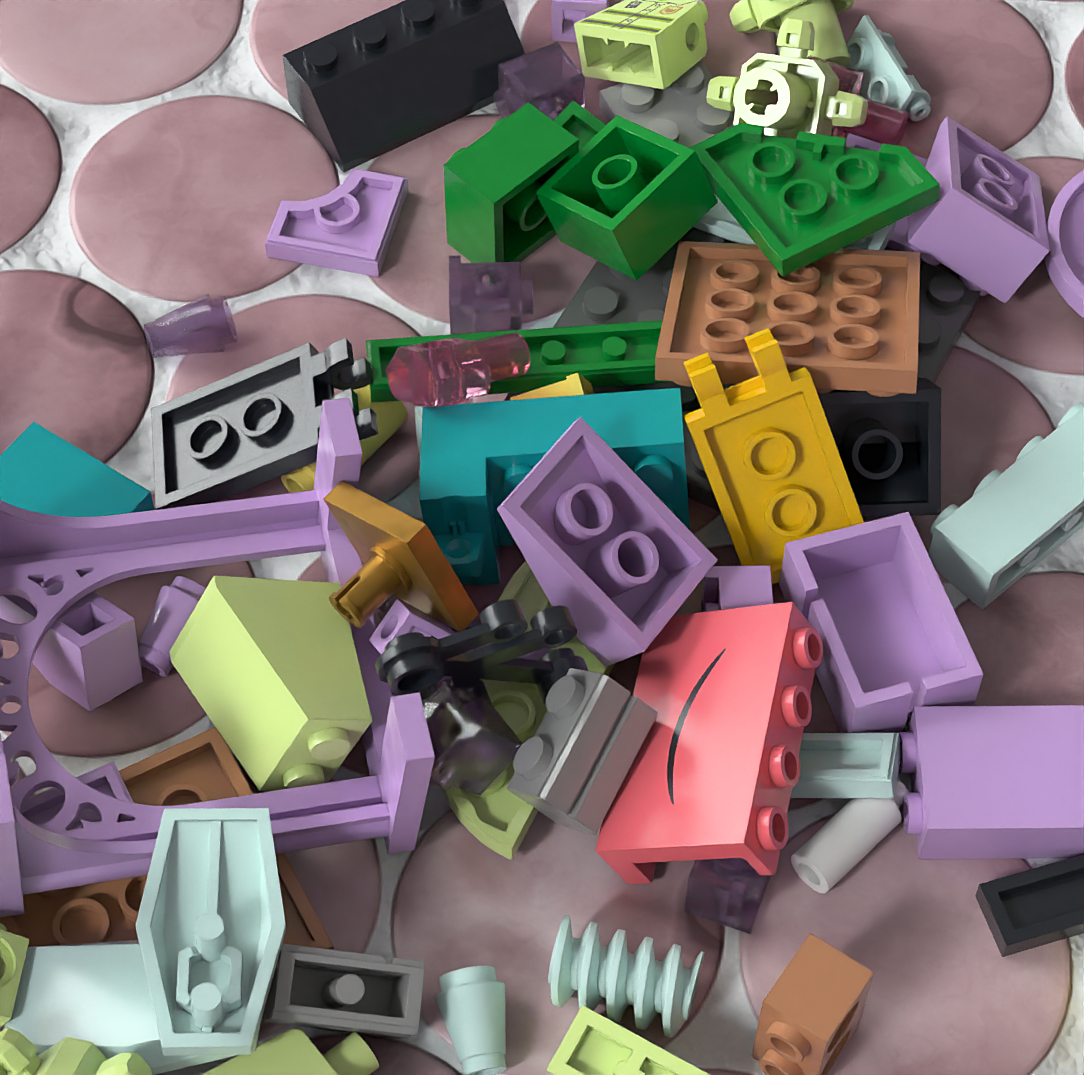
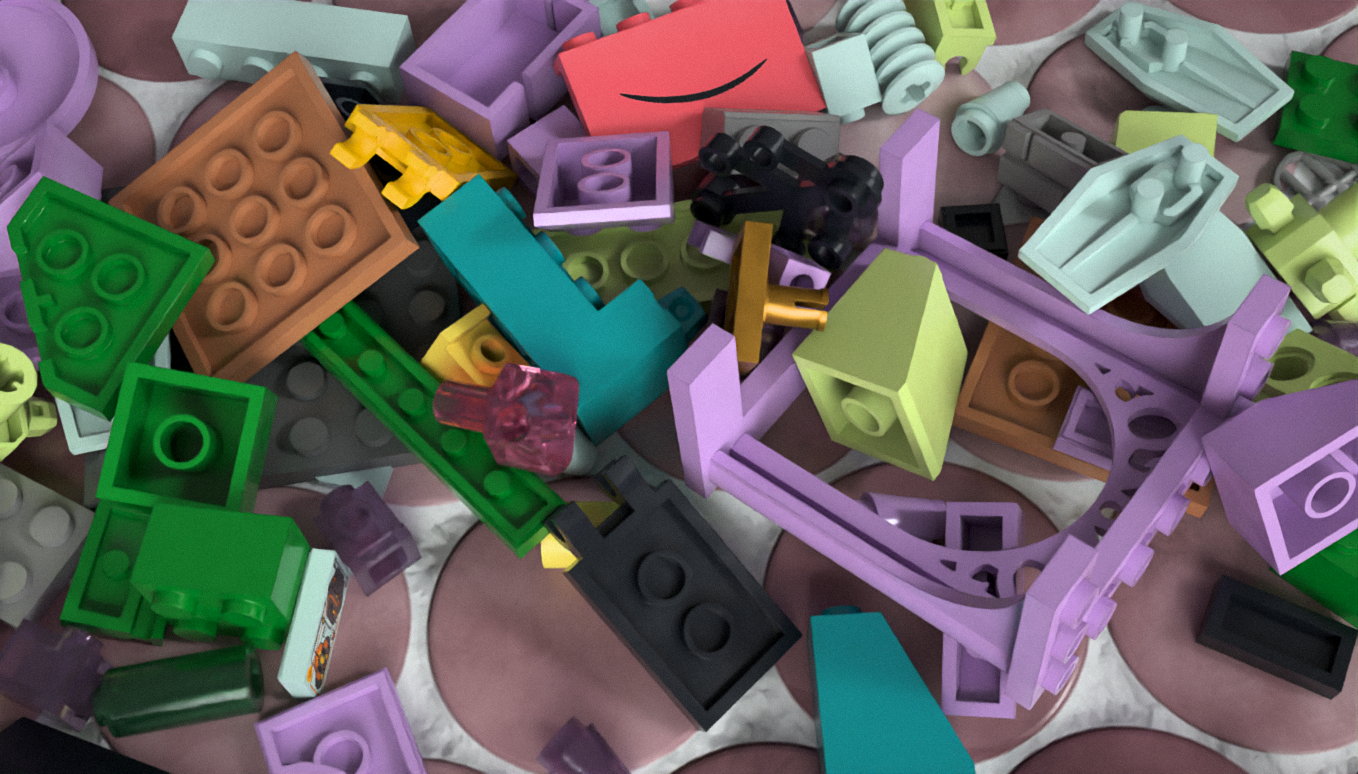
camera: 125 degrees left, 5 degrees up
(371, 906) = (977, 224): none -> black tile
(436, 228) = (314, 625): none -> light aqua tile
(469, 123) = (180, 691): none -> clear green brick
(631, 891) = (844, 74): none -> light aqua brick

